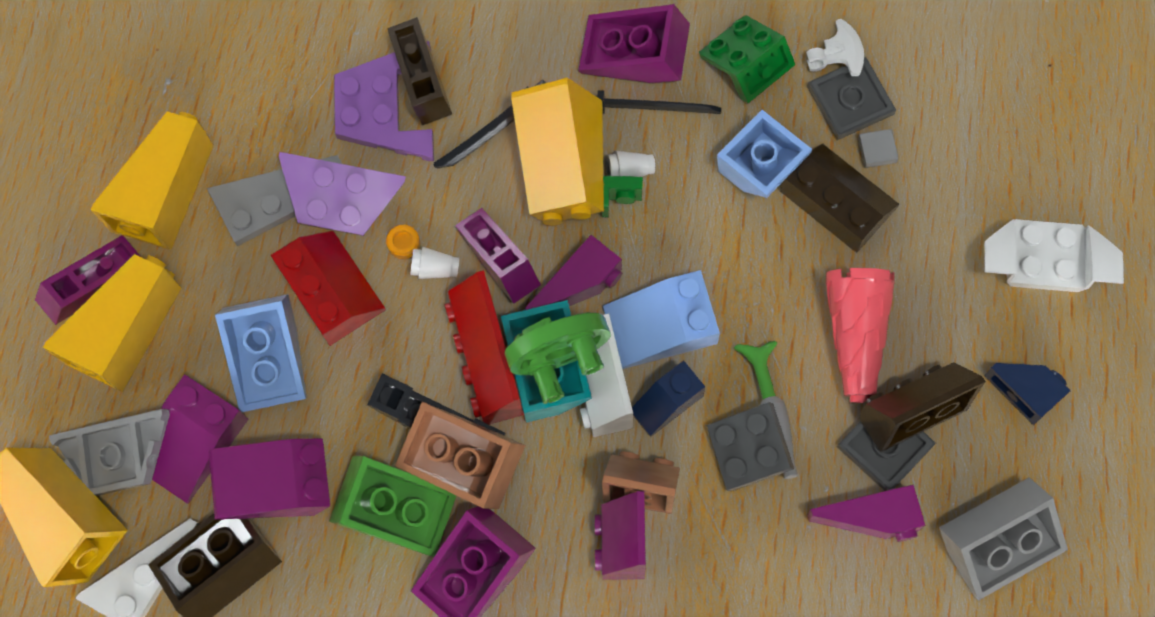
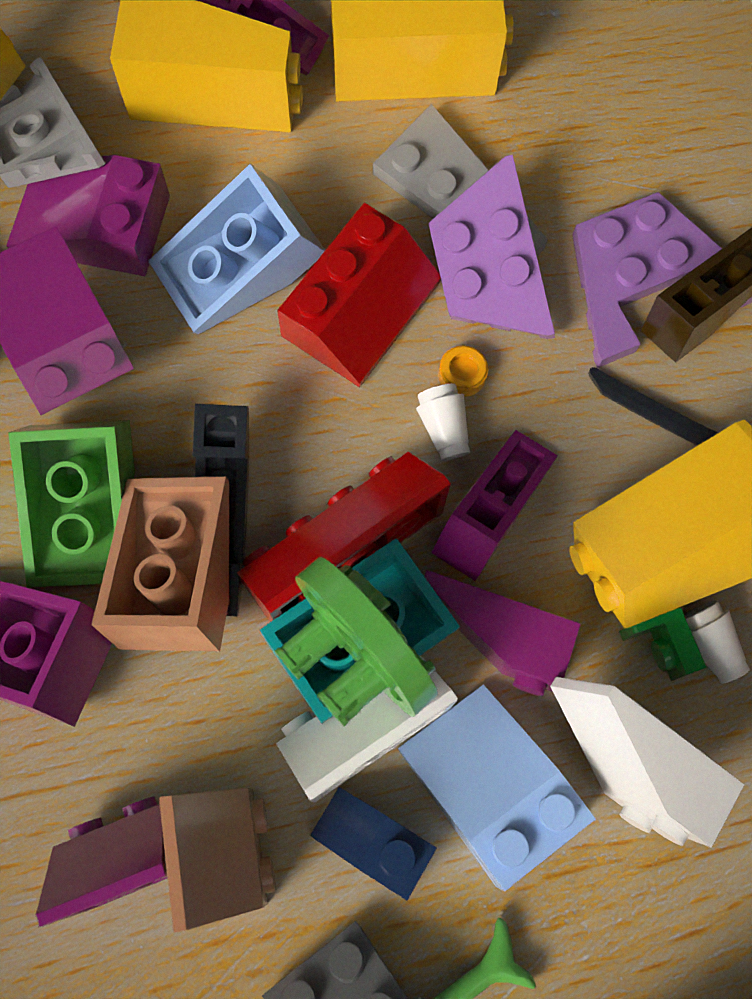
camera: 60 degrees right, 0 degrees up
(680, 231) = (647, 765): none -> white slope

